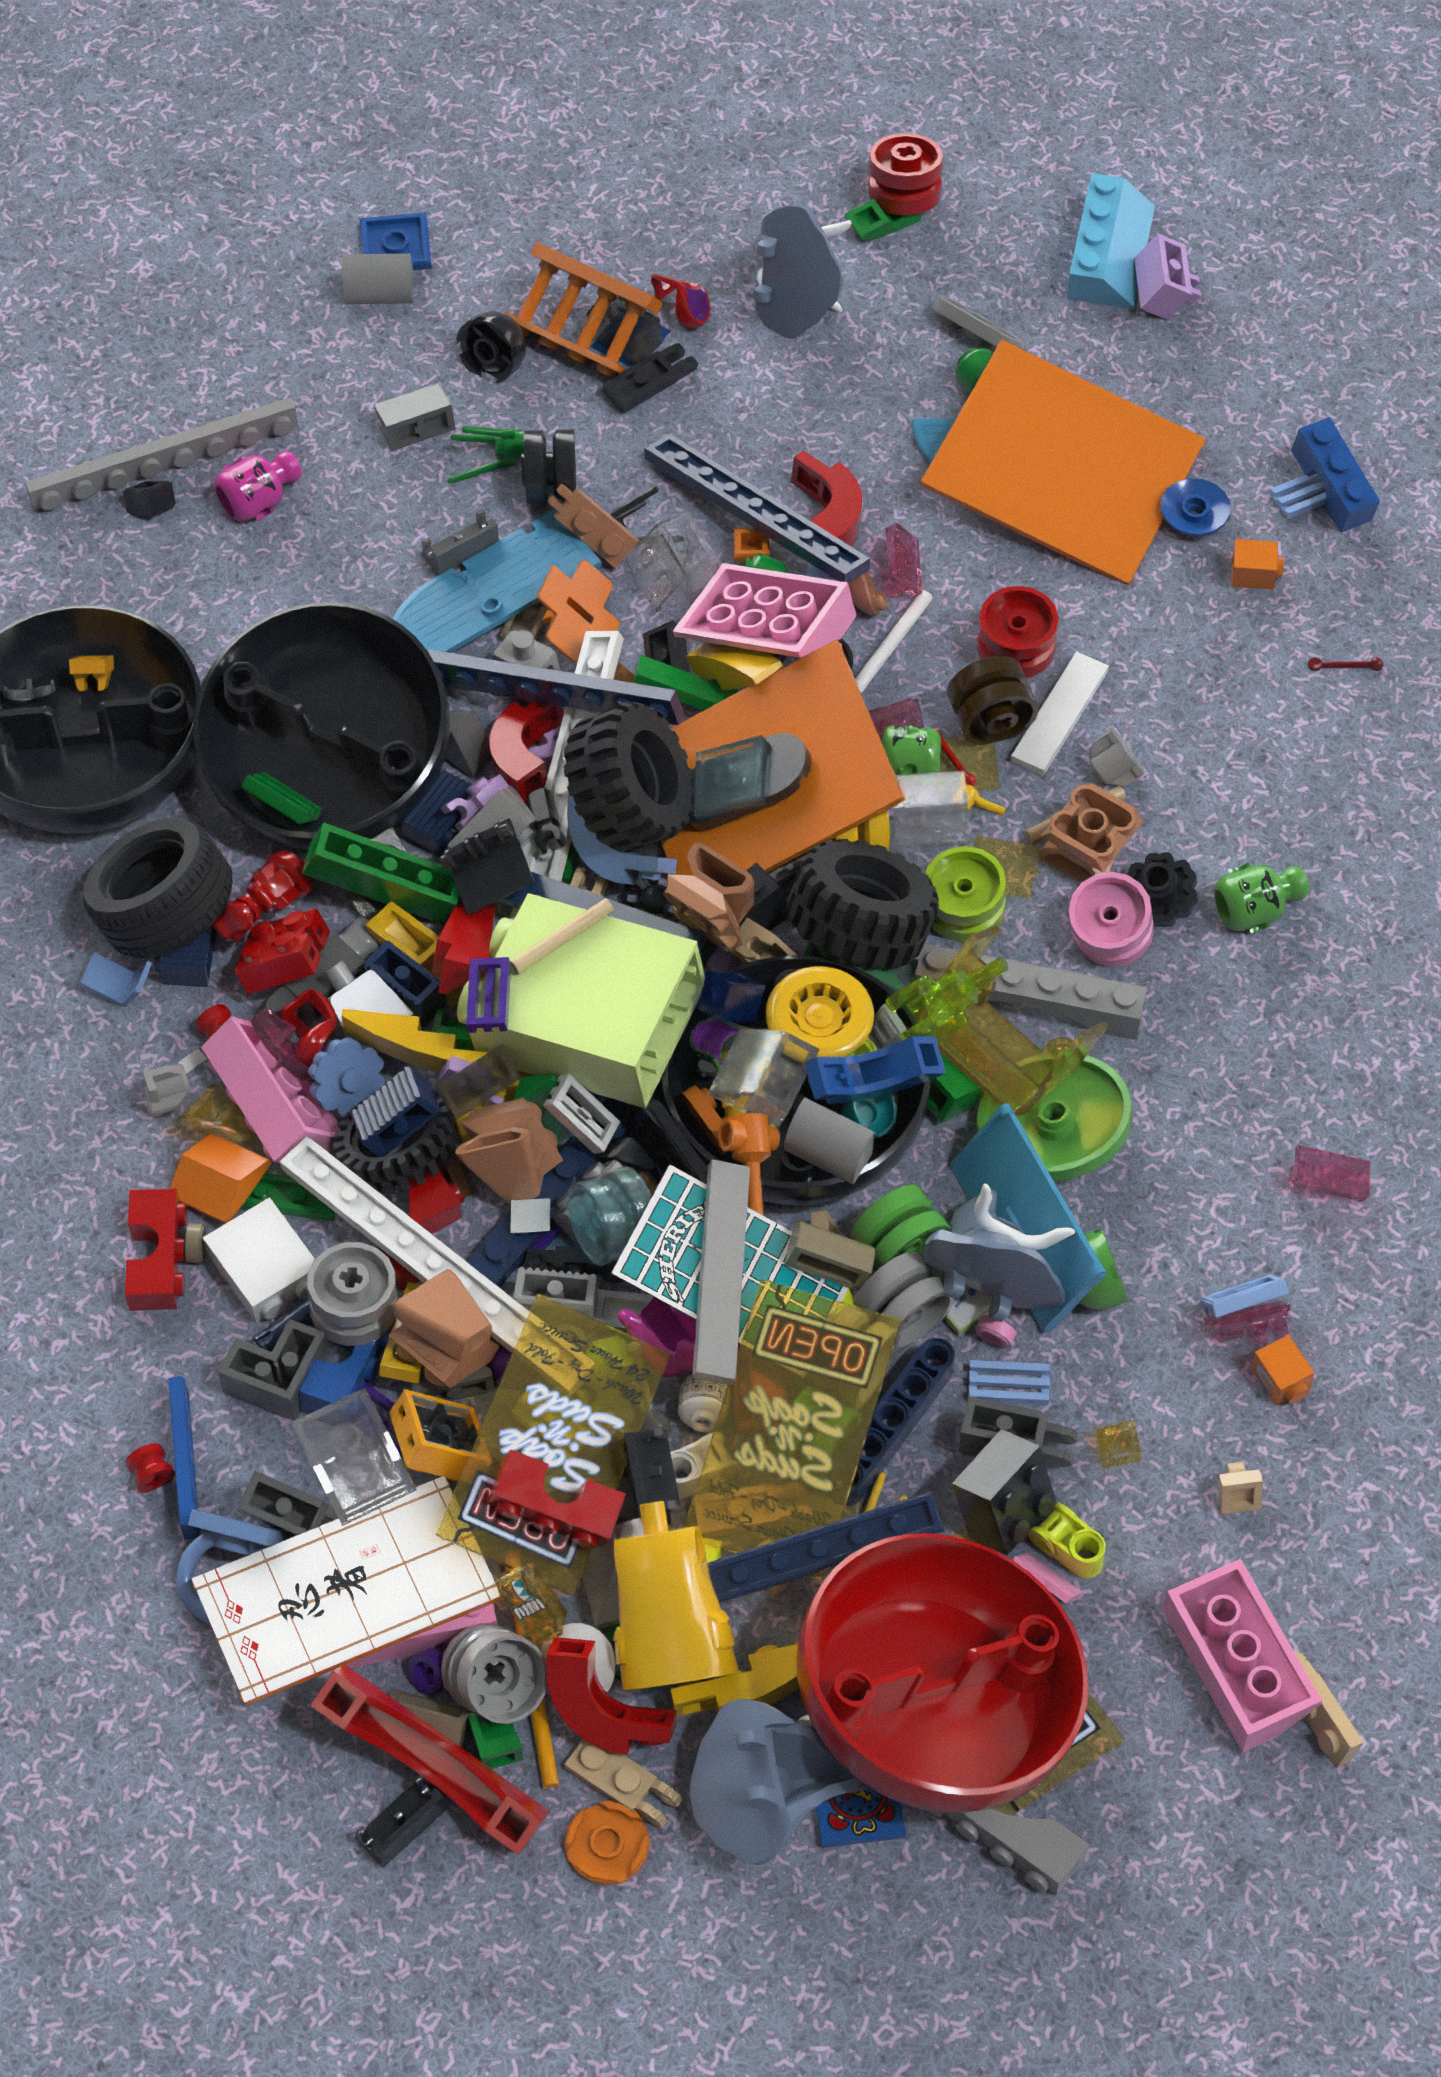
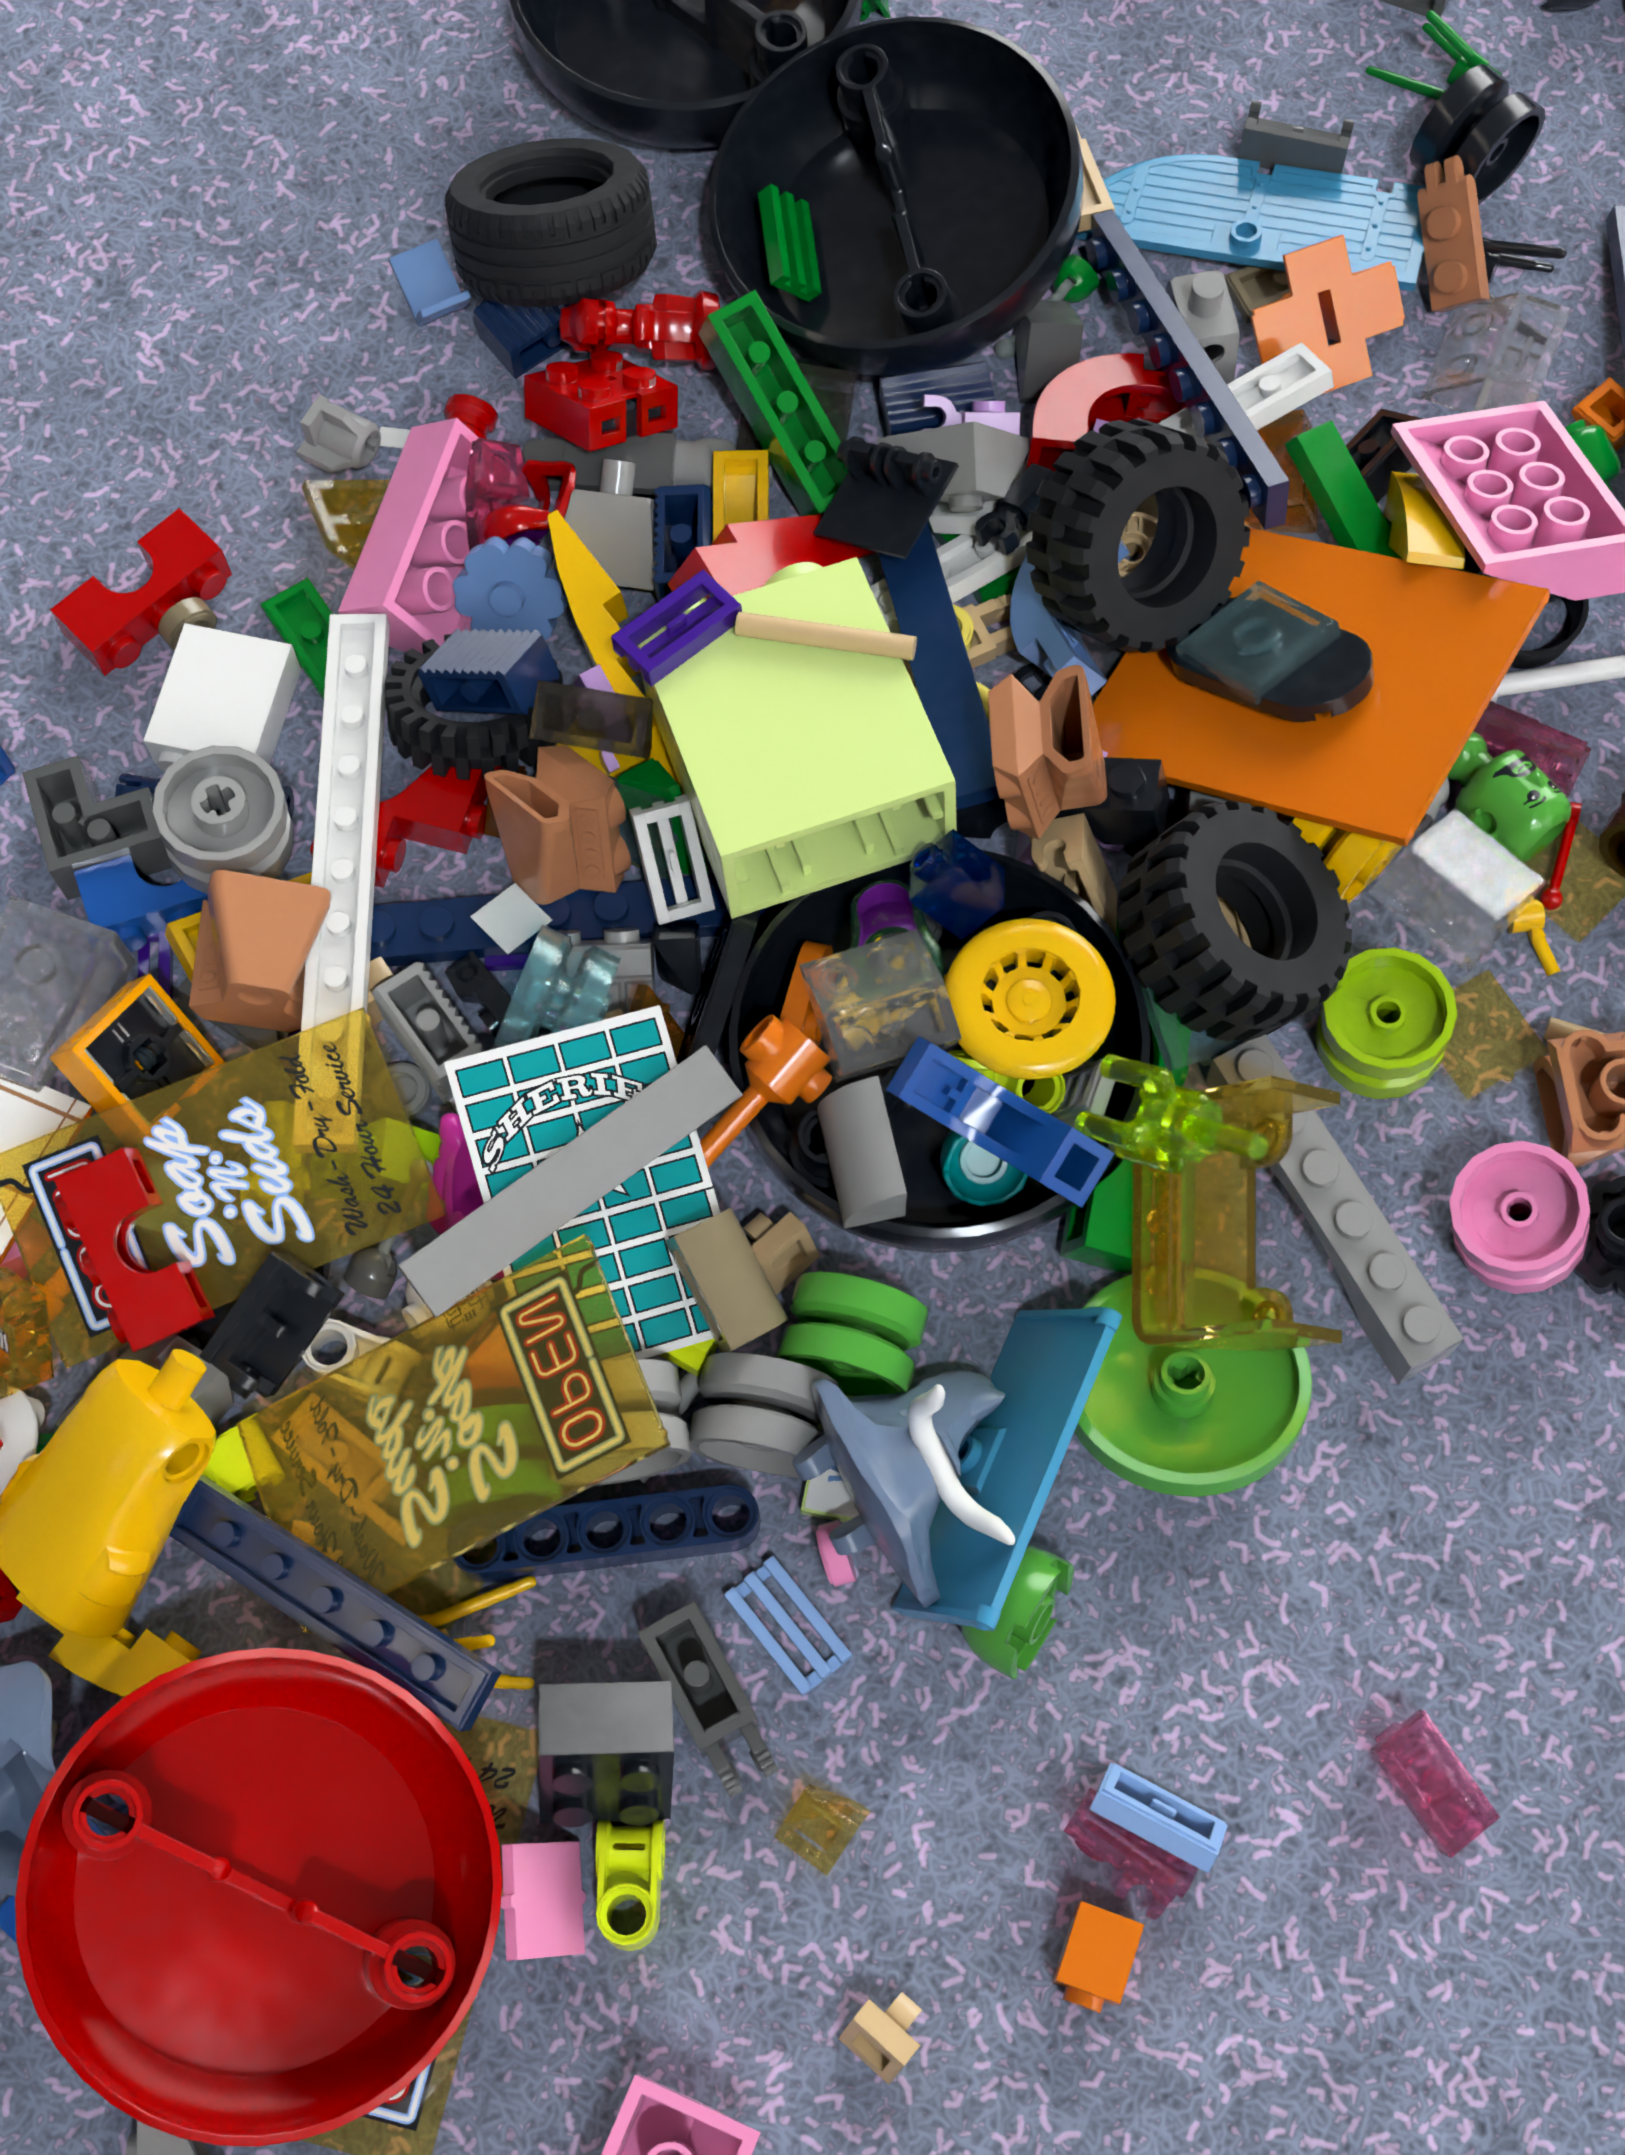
camera: 50 degrees right, 10 degrees up
(218, 1177) = (283, 578): orange slope -> none

